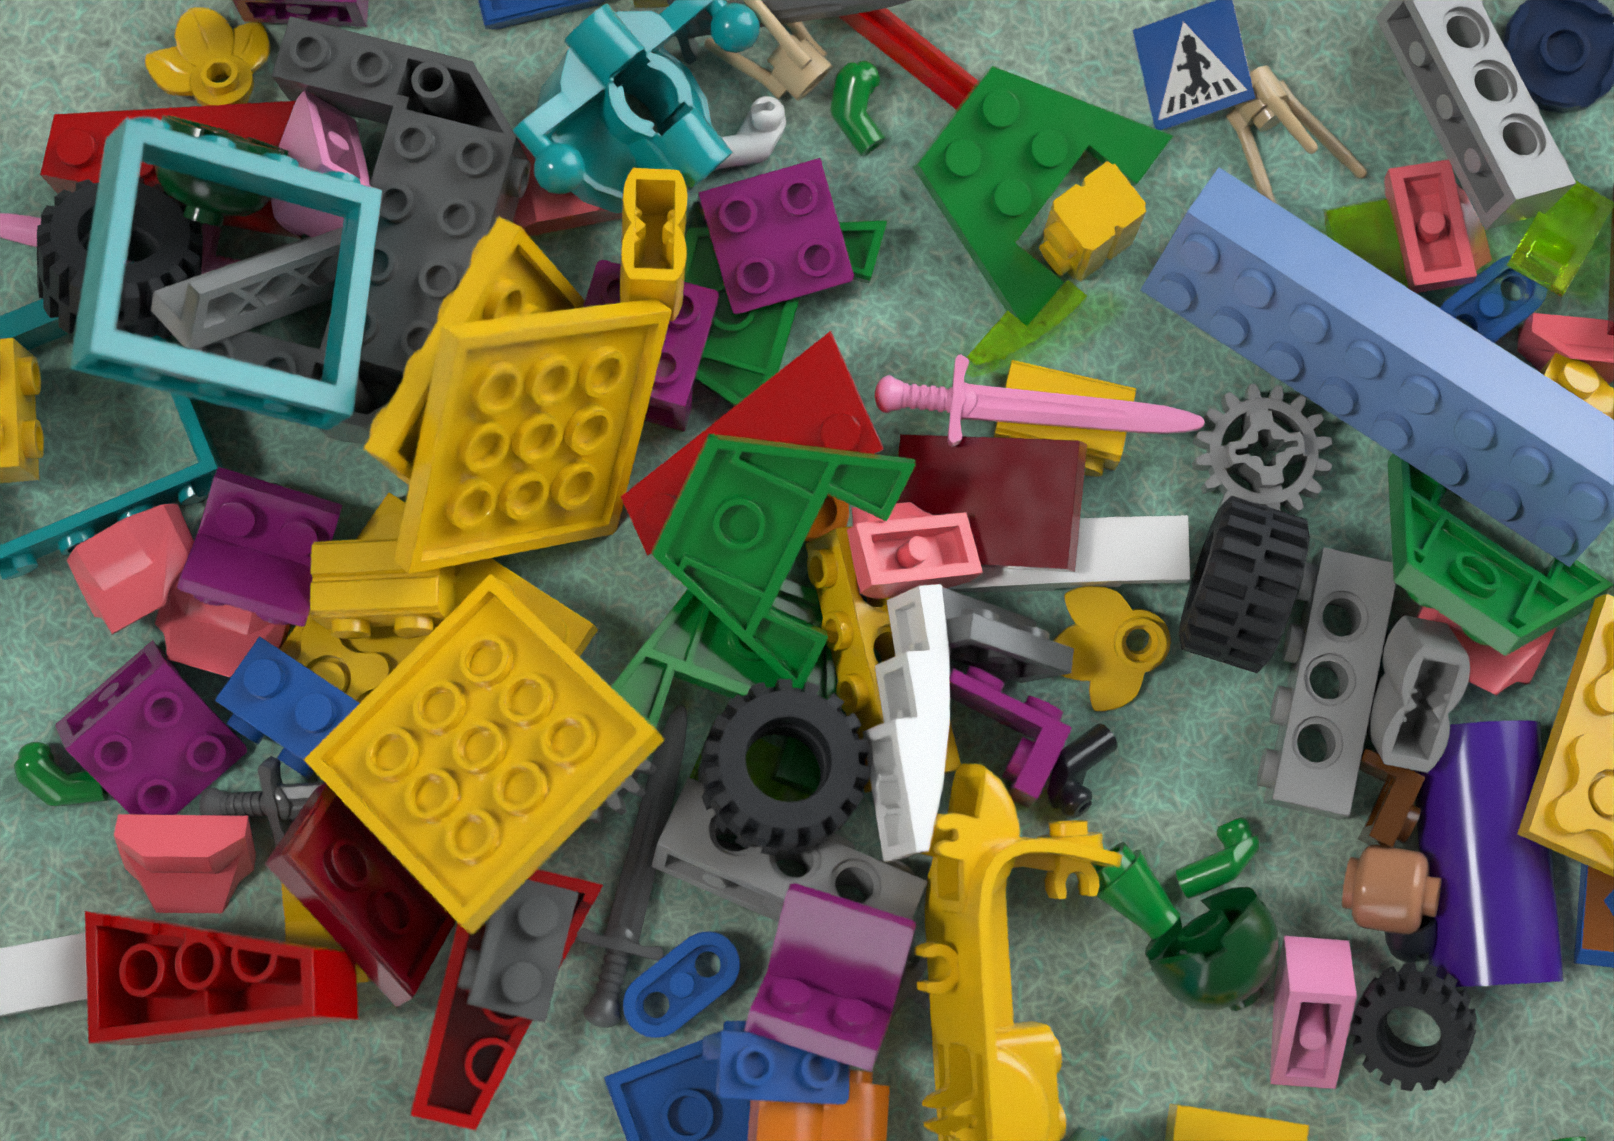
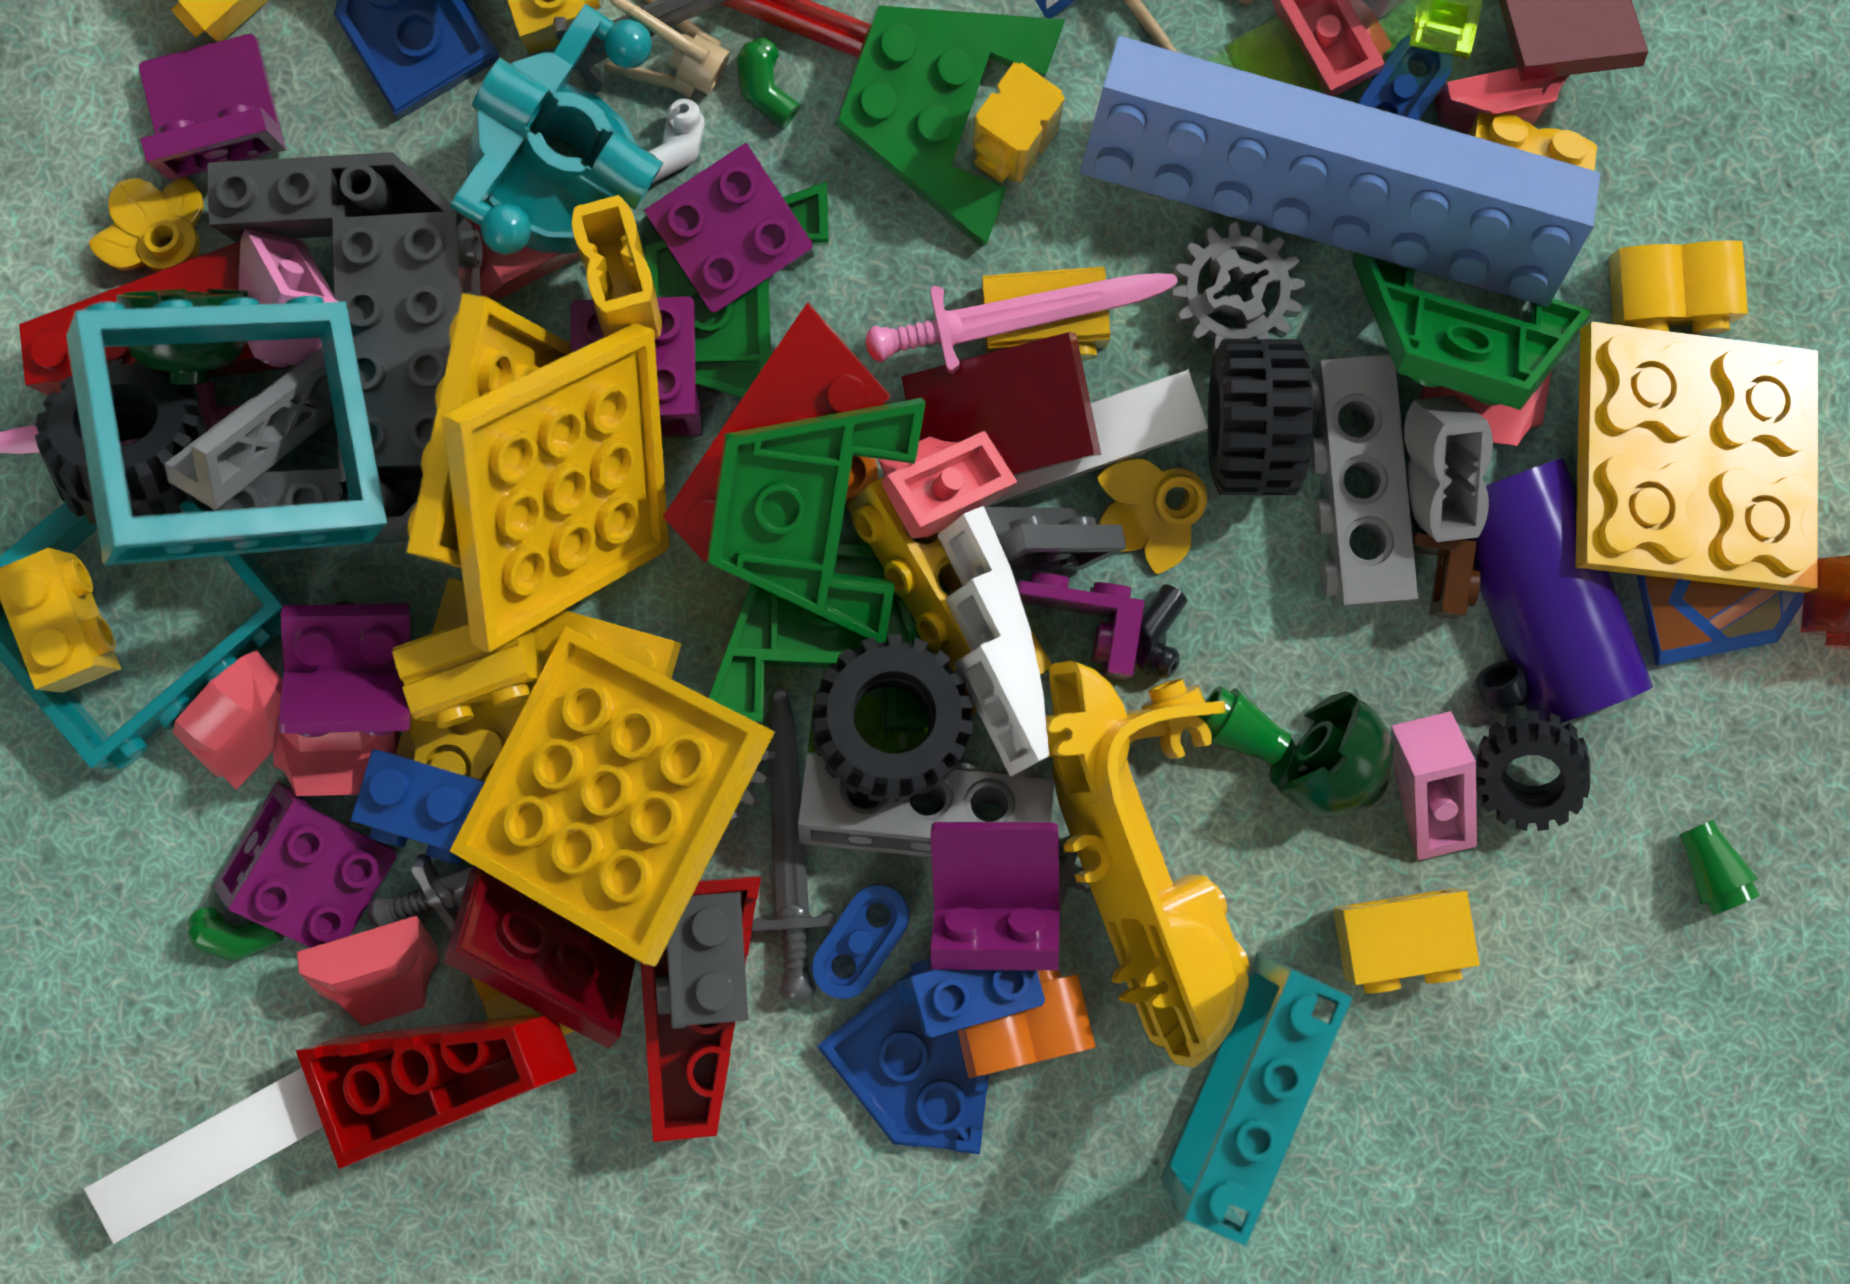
camera: 15 degrees left, 5 degrees up
(1013, 340) = (977, 256): clear neon green slope -> none
(1223, 865) = (1317, 677): green arm -> none
(1390, 889) = (1474, 653): nougat head -> none

